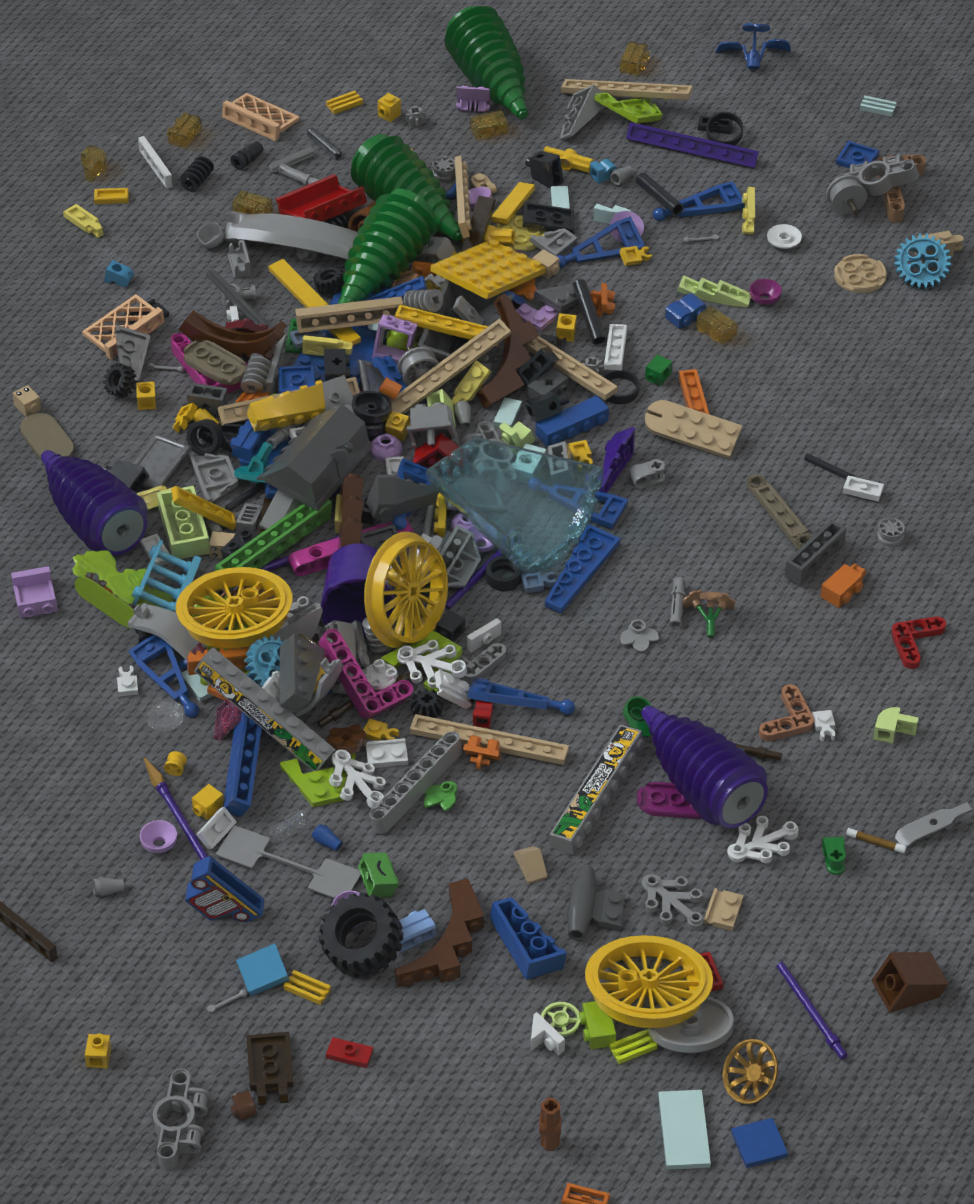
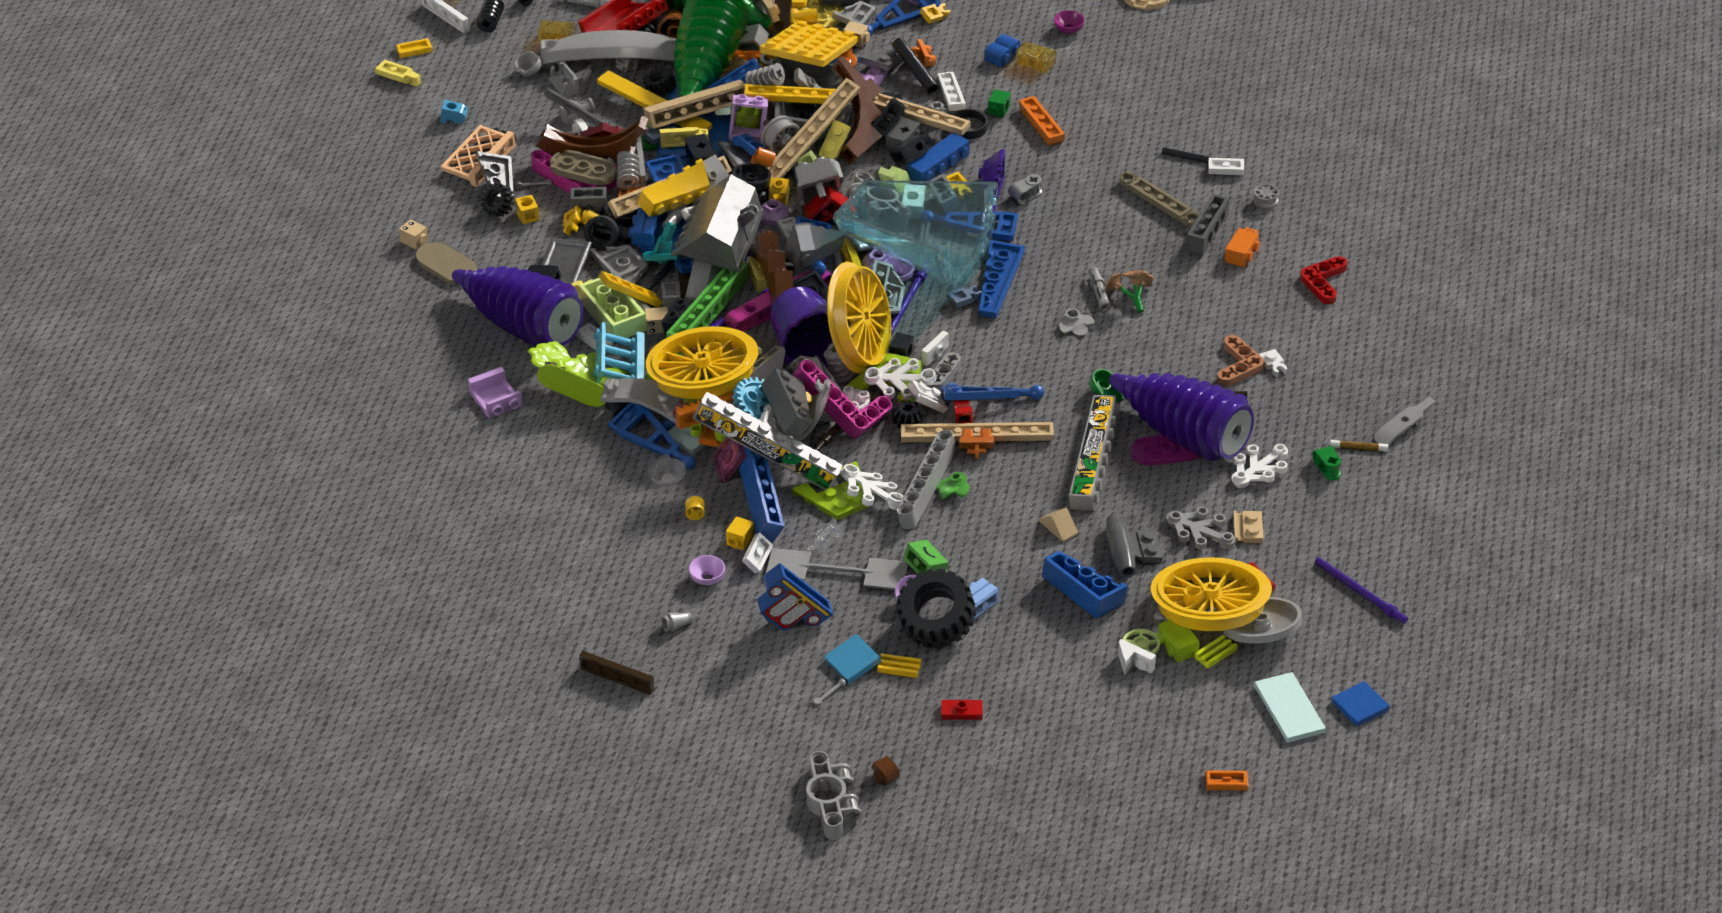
camera: 15 degrees left, 5 degrees down
(94, 162) = (385, 20): clear yellow brick -> none
(98, 1051) = (730, 755): yellow brick -> none
(127, 682) = (616, 452): white plate -> none
(158, 781) = (683, 525): dark purple piece -> none
(270, 1065) = (894, 734): dark brown tile -> none
(325, 837) = (862, 540): blue cone -> none
(347, 738) = (848, 455): reddish brown plate -> none
(378, 730) = (870, 446): yellow plate -> none
(387, 753) = (887, 461): white plate -> none
(455, 942) = (1022, 599): reddish brown arch -> none
(499, 583) = (933, 303): black tyre -> none
(508, 412) = (874, 162): light aqua tile -> none
(550, 1124) = (1175, 722): dark orange piece -> none
(566, 327) = (898, 82): yellow brick -> none
(692, 428) = (1051, 144): tan plate -> none
(718, 293) = (1022, 31): yellowish green slope -> none
(754, 1072) = (1334, 647): pearl gold wheel -> none
(891, 721) = (1334, 348): yellowish green brick -> none
(909, 980) = (1437, 548): reddish brown slope -> none

